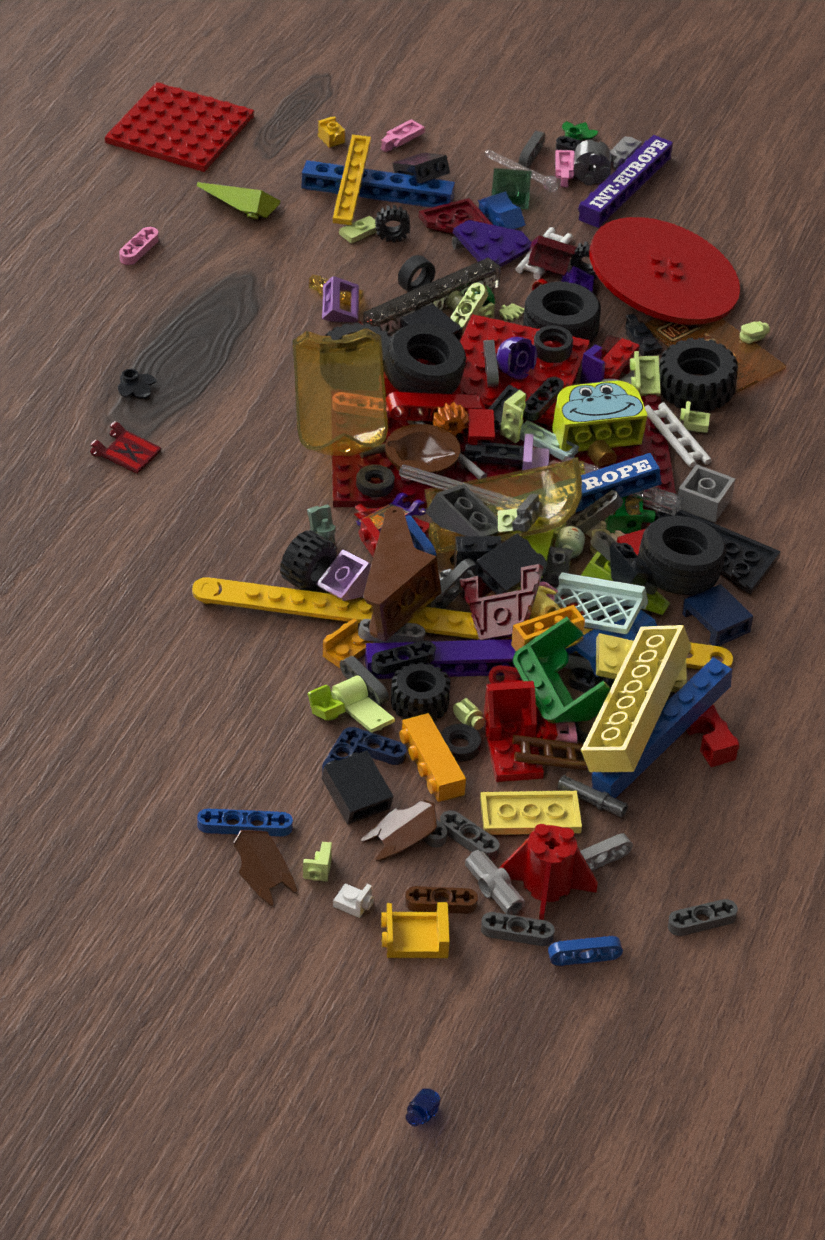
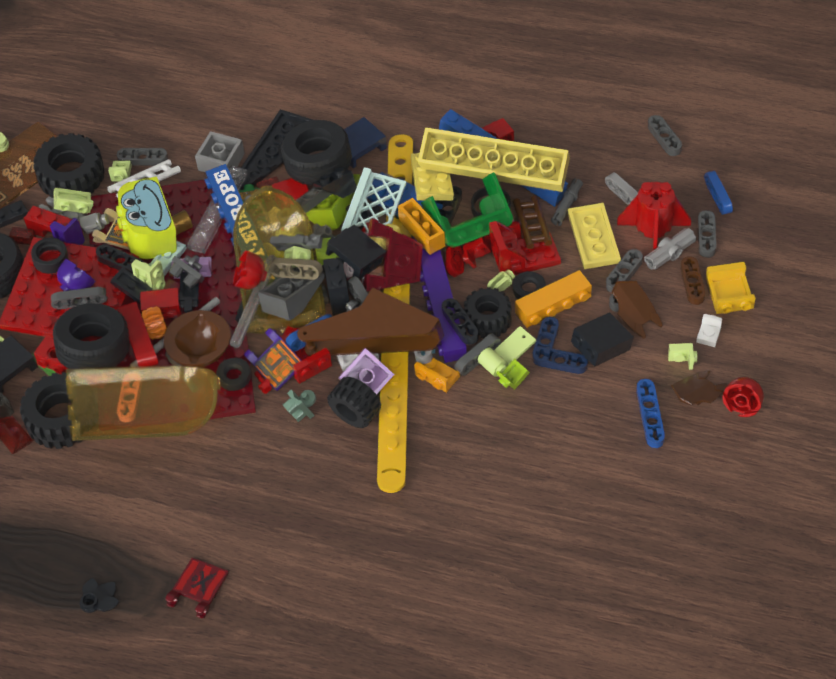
camera: 90 degrees left, 10 degrees up
(241, 905) = (743, 396): none -> red cylinder
(487, 471) = (250, 271): none -> red cylinder
(489, 512) = (288, 272): none -> dark tan beam
(514, 440) = (193, 276): none -> dark grey hips
(721, 435) = (136, 152): none -> dark grey beam

